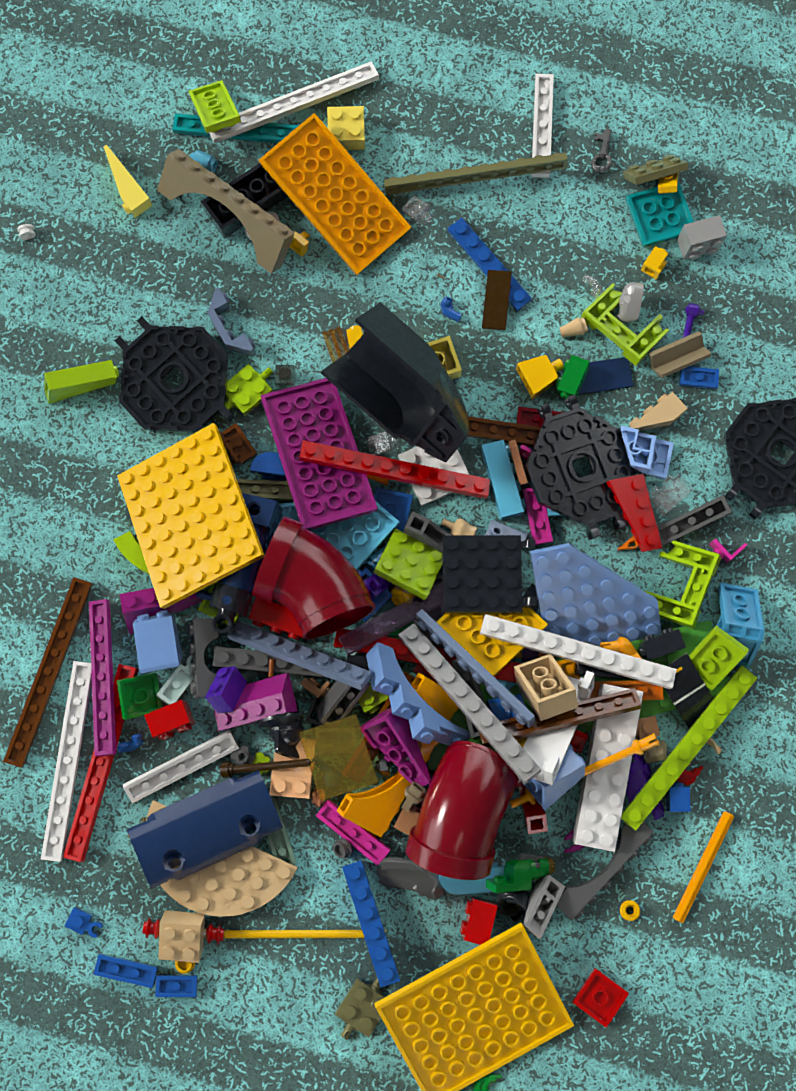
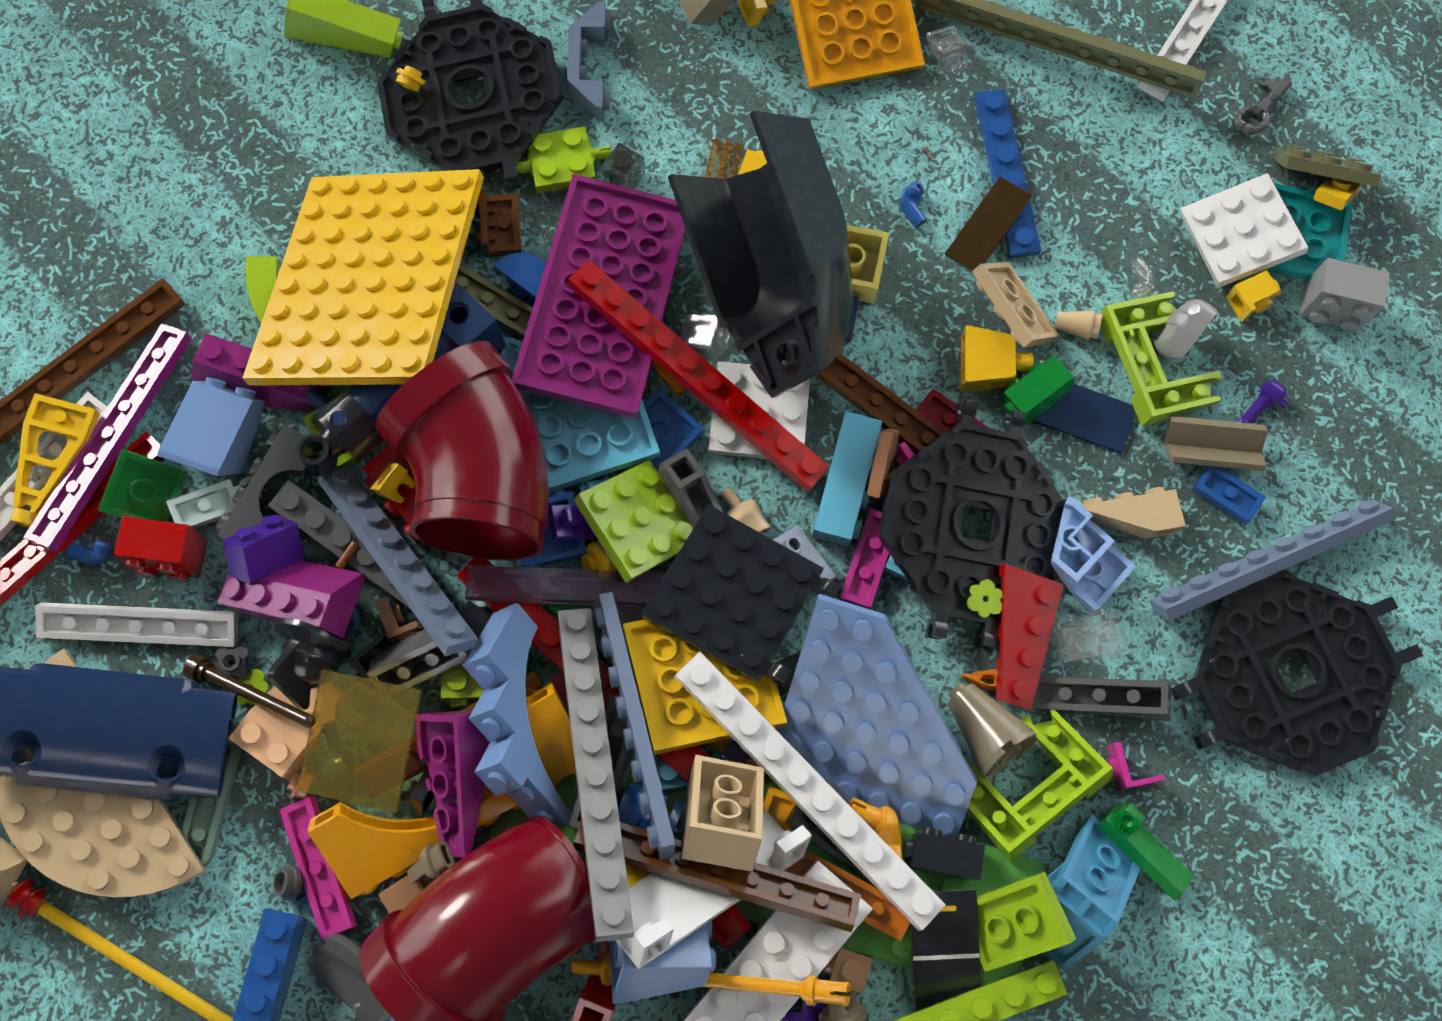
camera: 25 degrees right, 5 degrees down
(70, 683) = (56, 417): none -> yellow plate
(139, 391) = (410, 78): none -> yellow plate
(269, 616) = (389, 481): none -> yellow tile
(535, 337) = (1015, 304): none -> tan plate
(611, 500) = (992, 598): none -> lime plant
(631, 229) = (1243, 230): none -> white plate
(646, 569) = (989, 729): none -> dark tan cone
(739, 400) = (1273, 559): none -> sand blue plate
(742, 581) = (1125, 830): none -> green hinge

